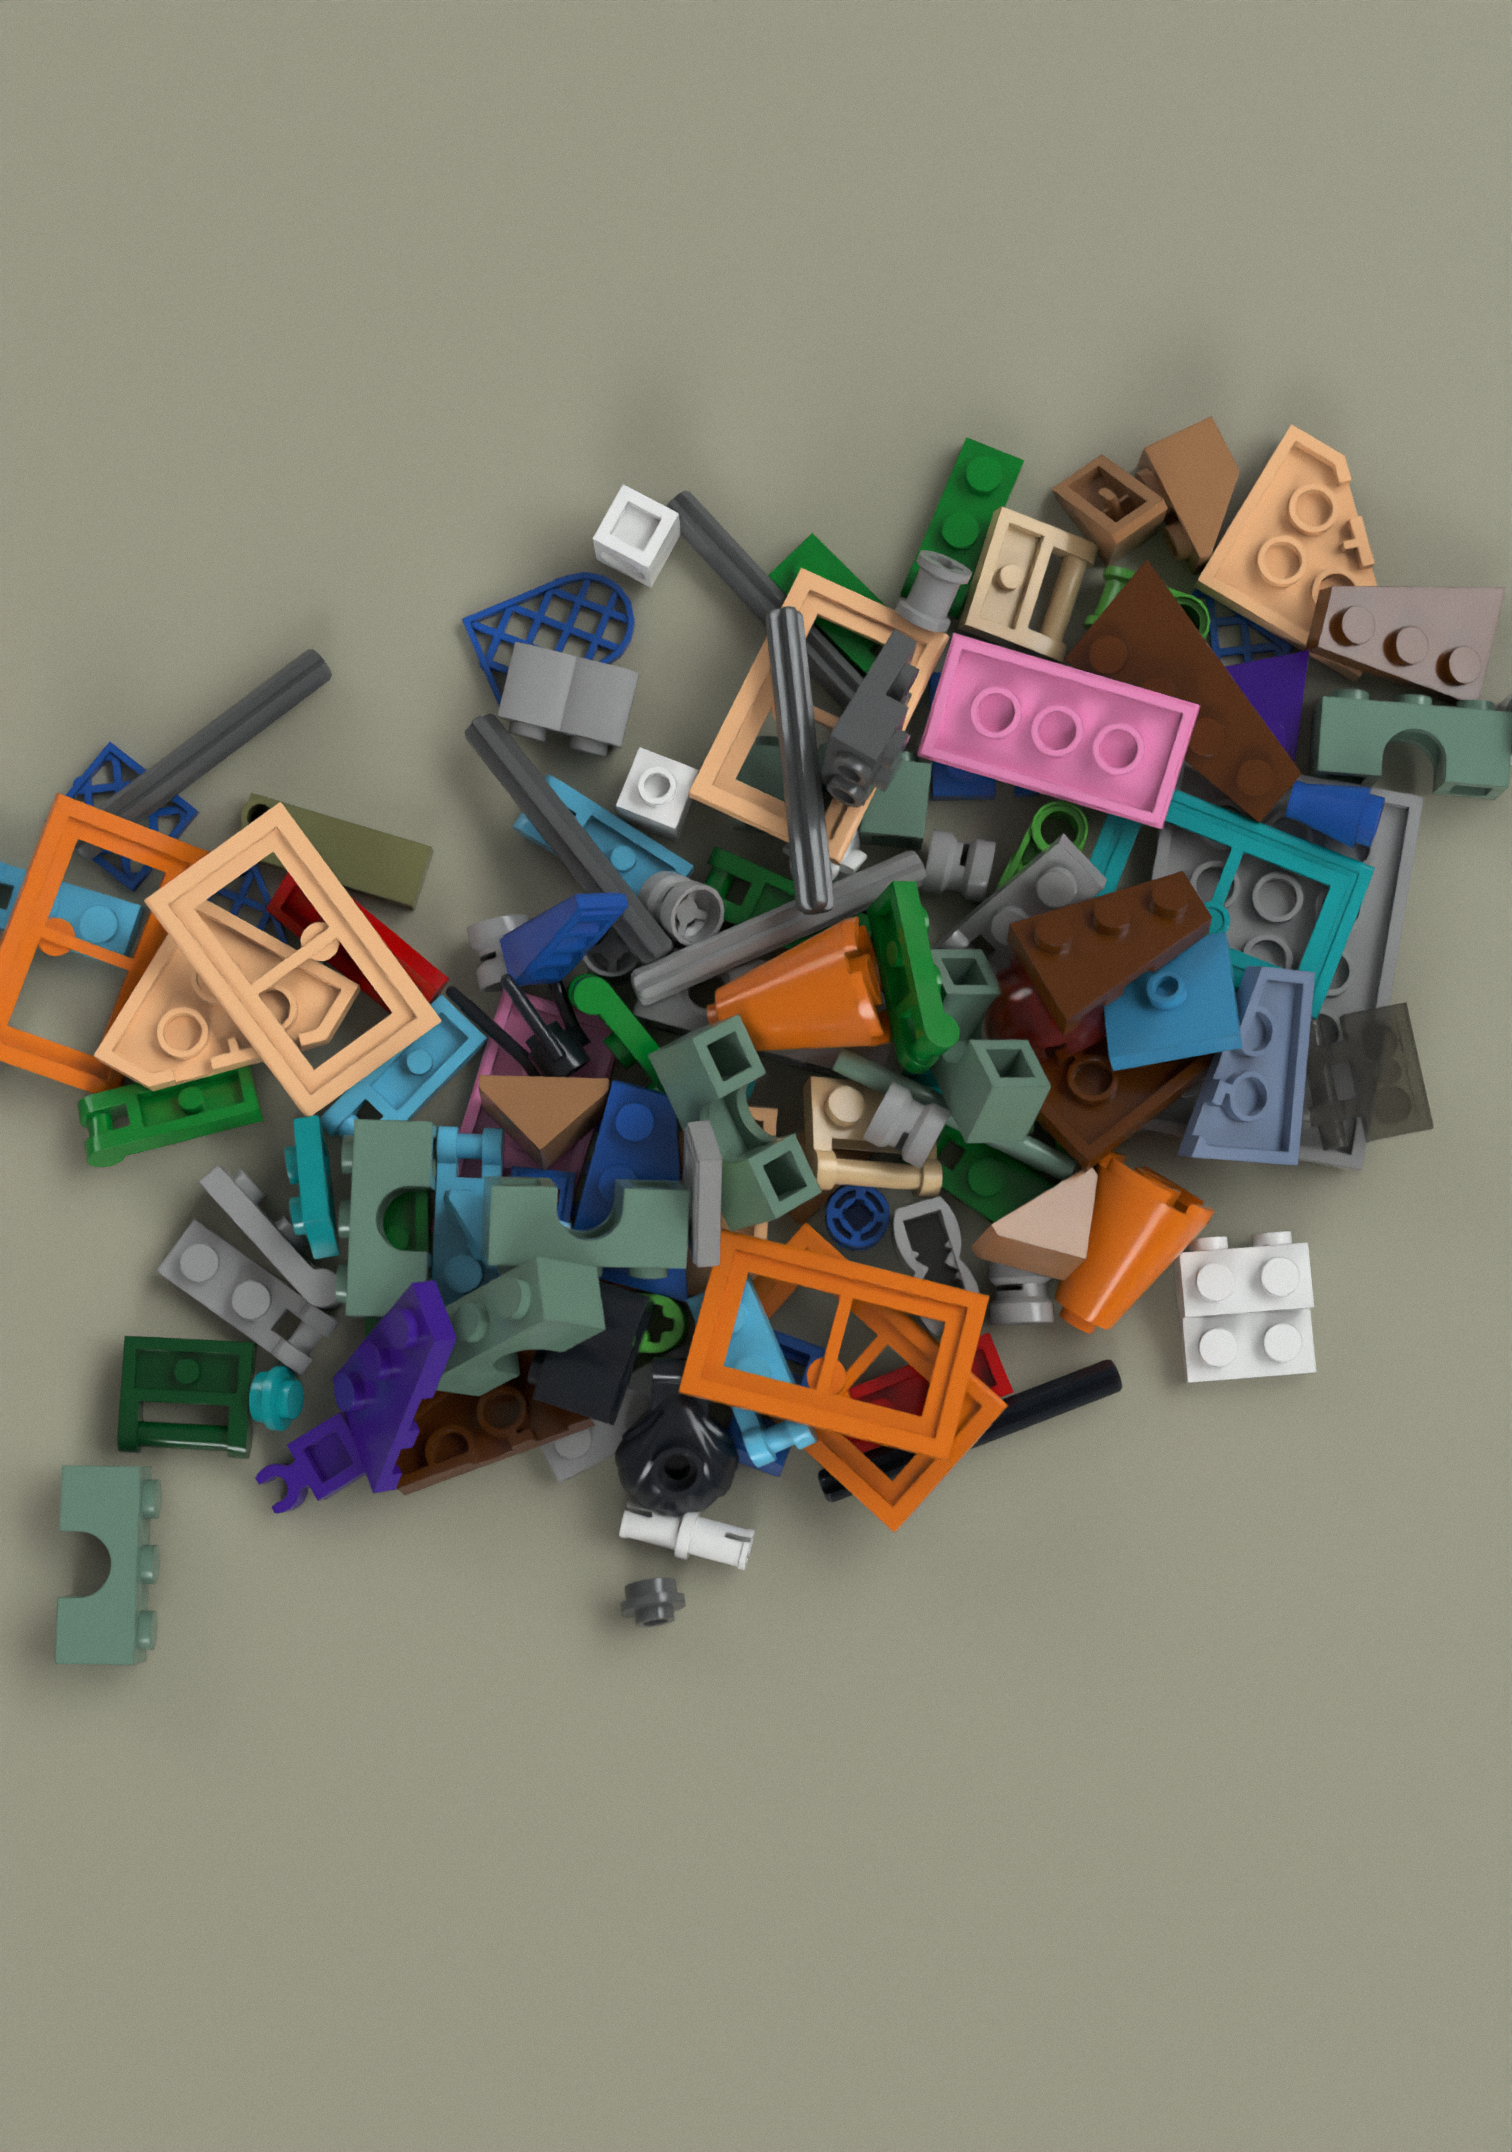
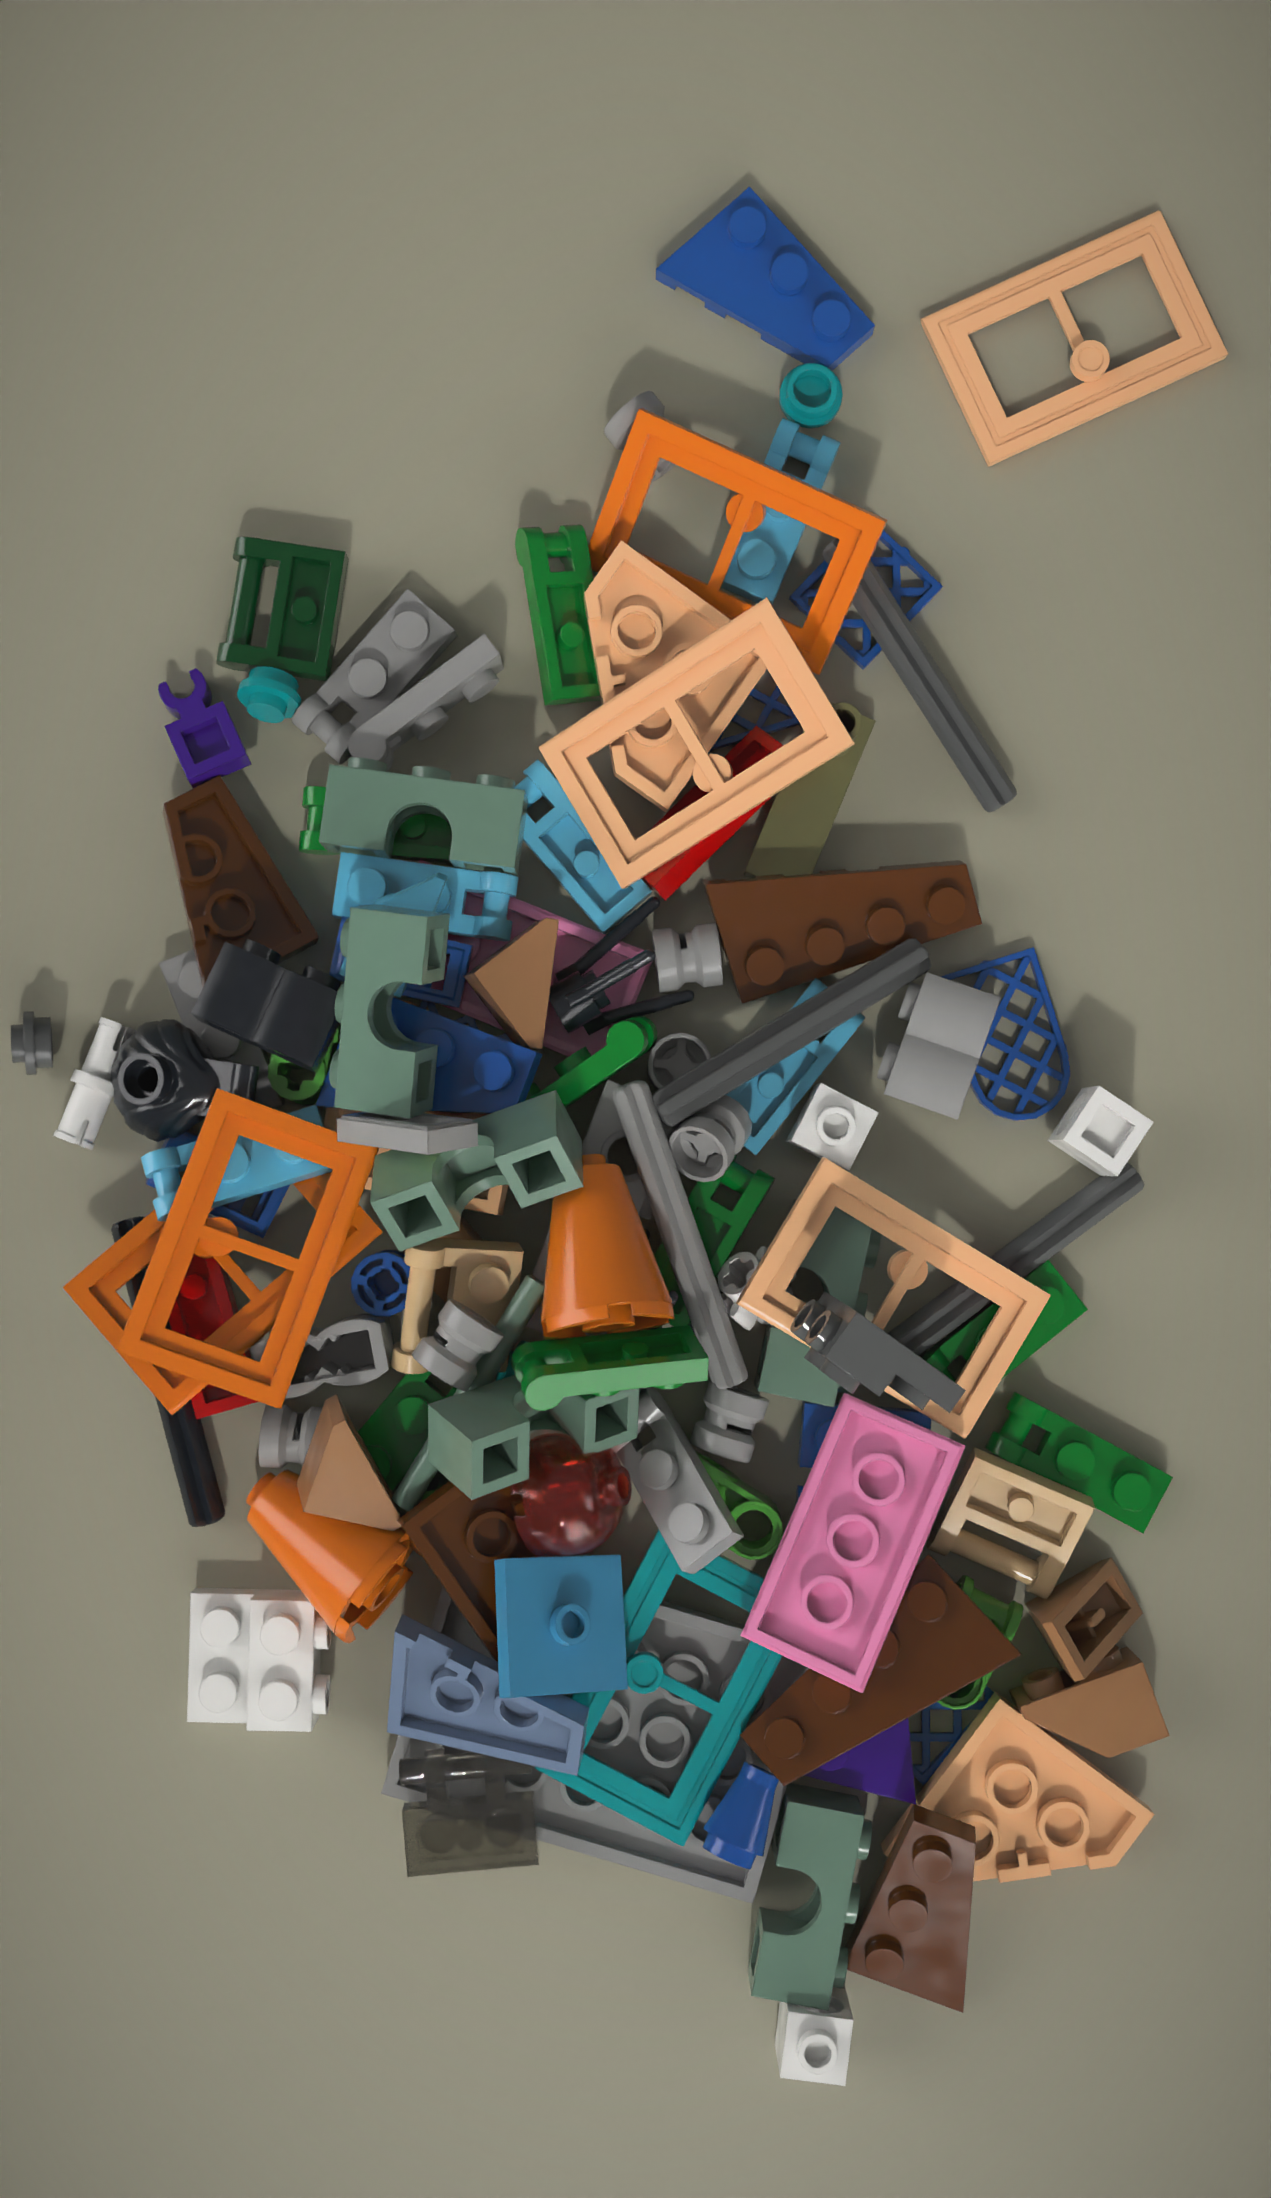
camera: 90 degrees right, 5 degrees up
(115, 1620) = (178, 528): sand green arch -> none
(310, 1167) = (488, 747): teal plate -> none
(390, 1376) = (262, 805): dark purple wing -> none
(457, 824) = (814, 925): none -> reddish brown wing
(527, 1308) = (299, 921): sand green arch -> none
(560, 937) = (687, 1012): blue slope -> none
(799, 761) = (845, 1274): dark grey axle -> none
(933, 591) = (1012, 1428): light grey bush -> none
(1104, 943) = (623, 1565): reddish brown wing -> none

